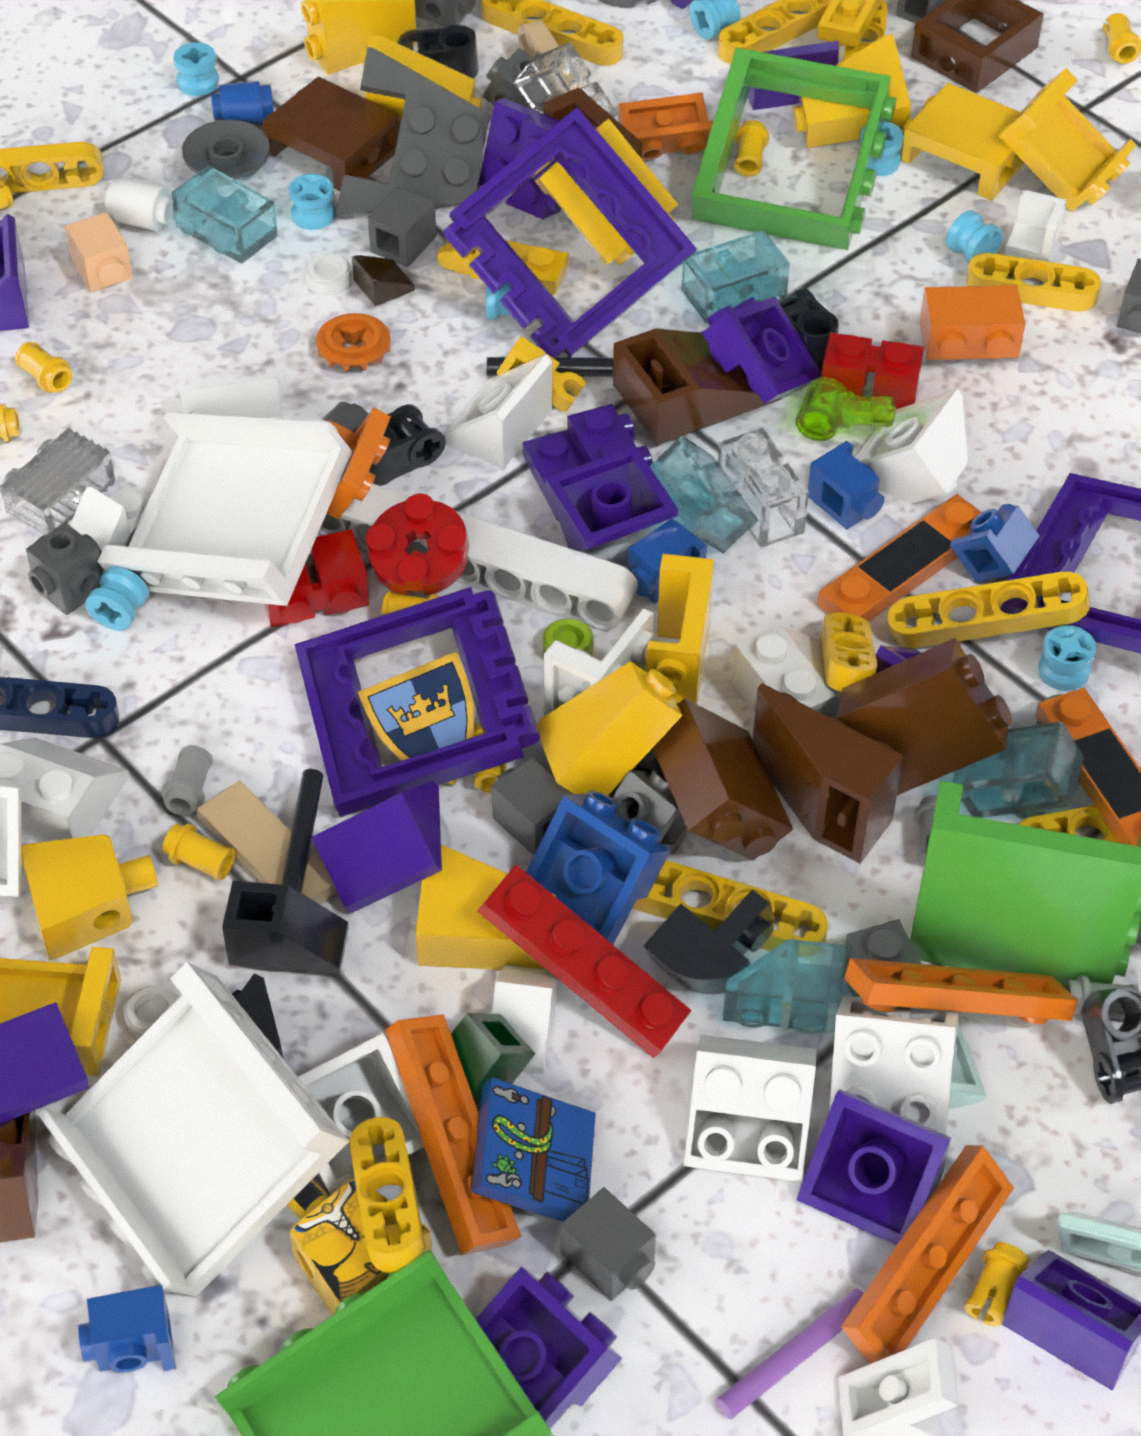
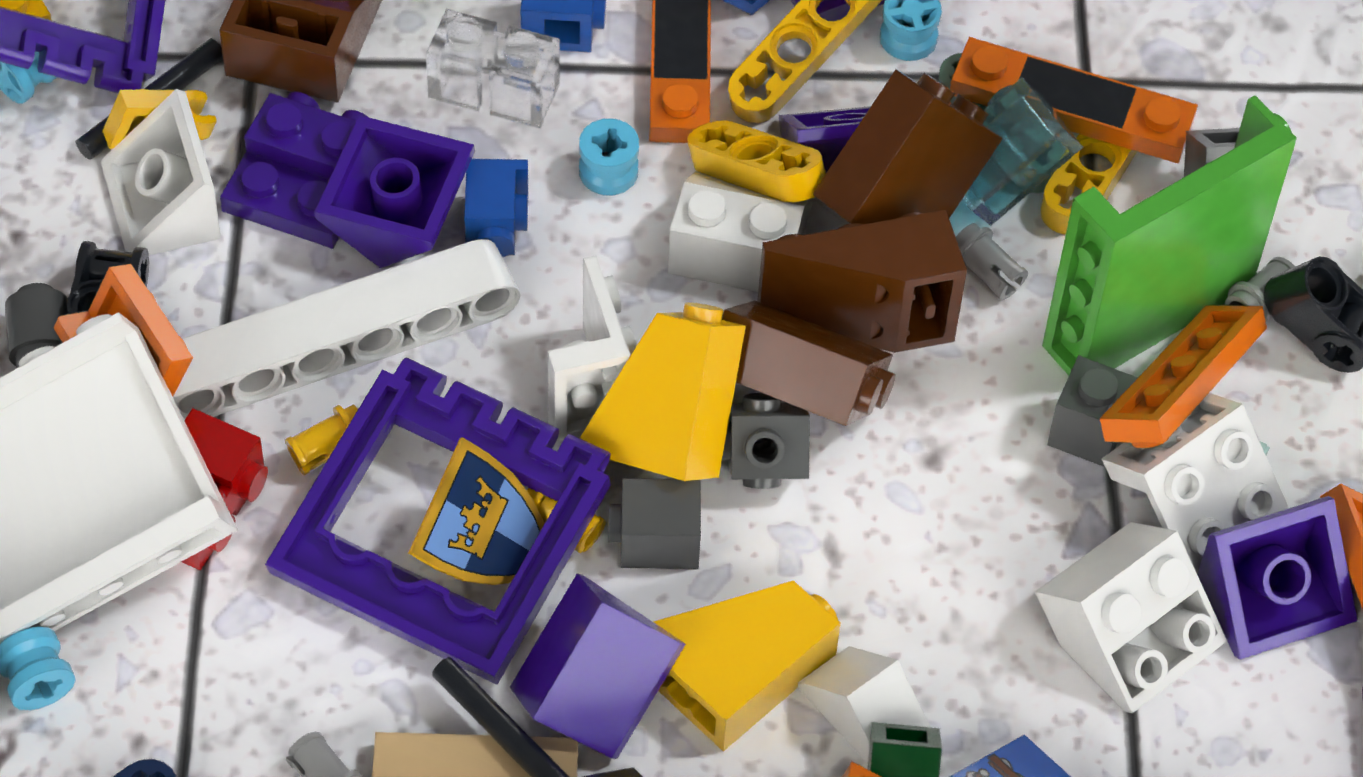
camera: 50 degrees left, 5 degrees up
(413, 520) = (256, 343): red plate -> none
(571, 633) = (493, 354): lime tile -> none
(584, 961) = (880, 614): red plate -> none
(598, 860) = (788, 524): blue plate -> none
(682, 615) = (589, 219): yellow panel -> none
(703, 494) = (460, 113): clear light blue brick -> none
(708, 958) = (959, 525): black brick -> none
(725, 897) = (900, 465): yellow beam -> none
(771, 588) = (618, 169): none -> medium azure wheel
(789, 988) = (1048, 487): clear light blue slope -> none

